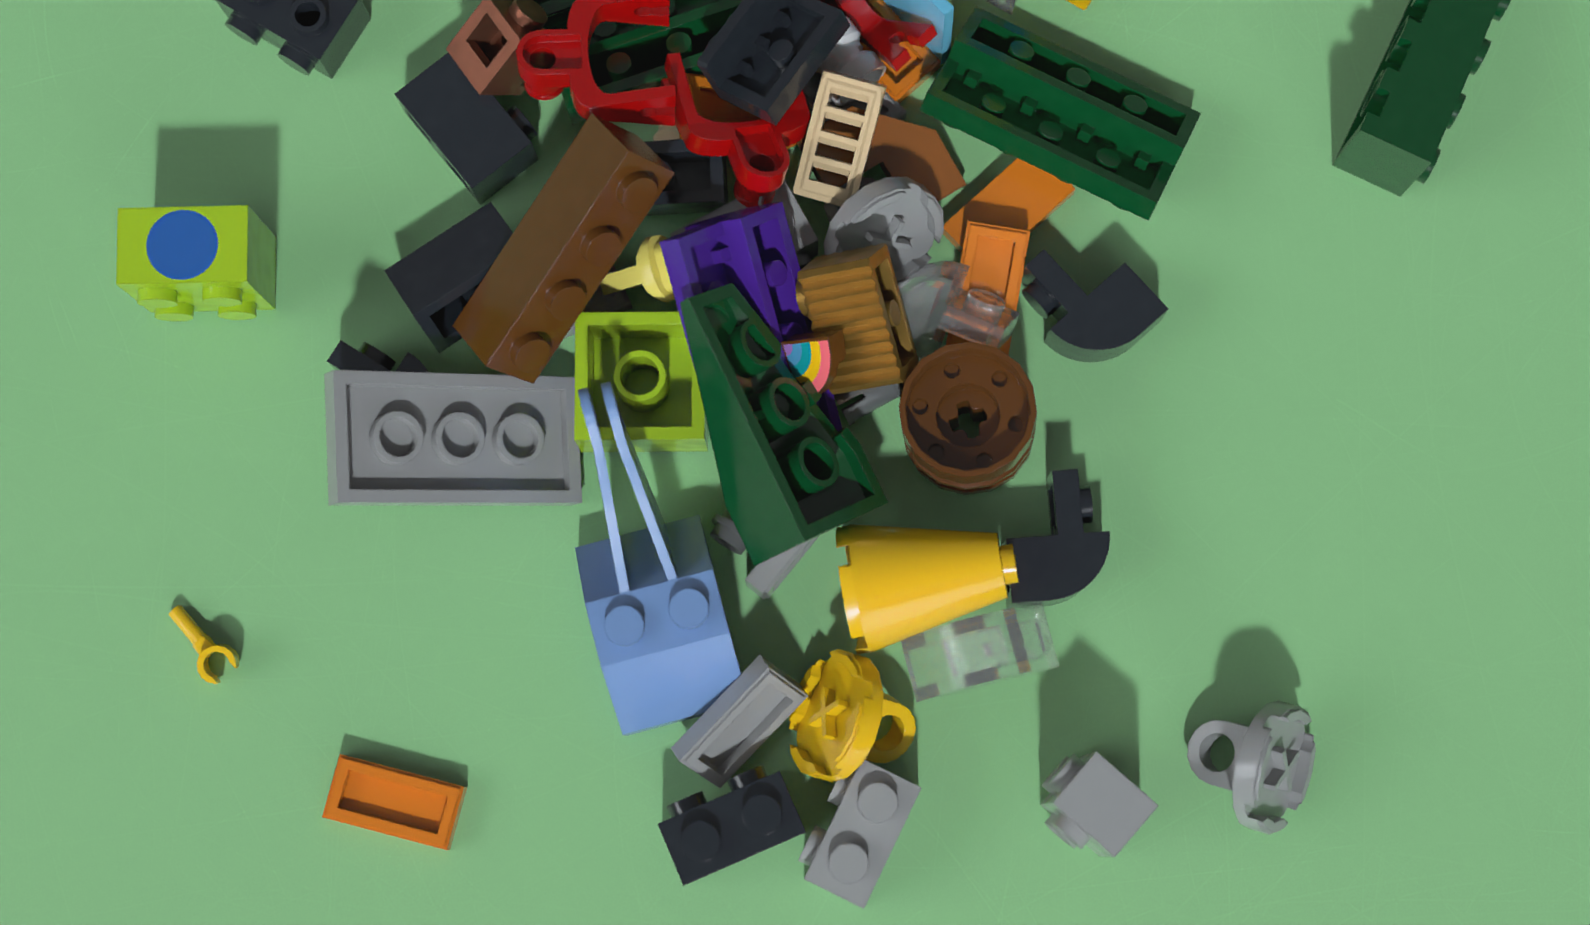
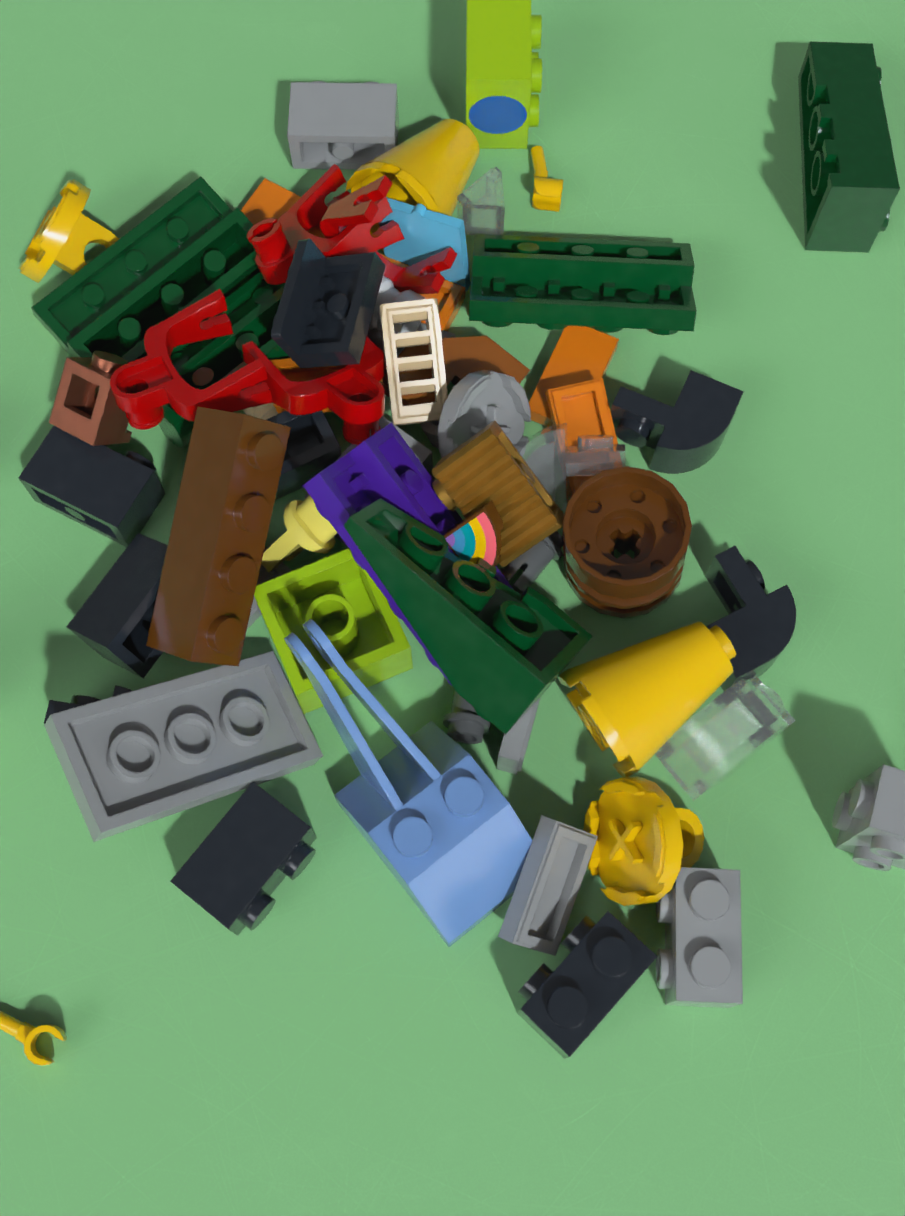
camera: 25 degrees left, 10 degrees down
(394, 802) = (263, 1102): orange tile -> none
(467, 574) = (246, 860): none -> black brick

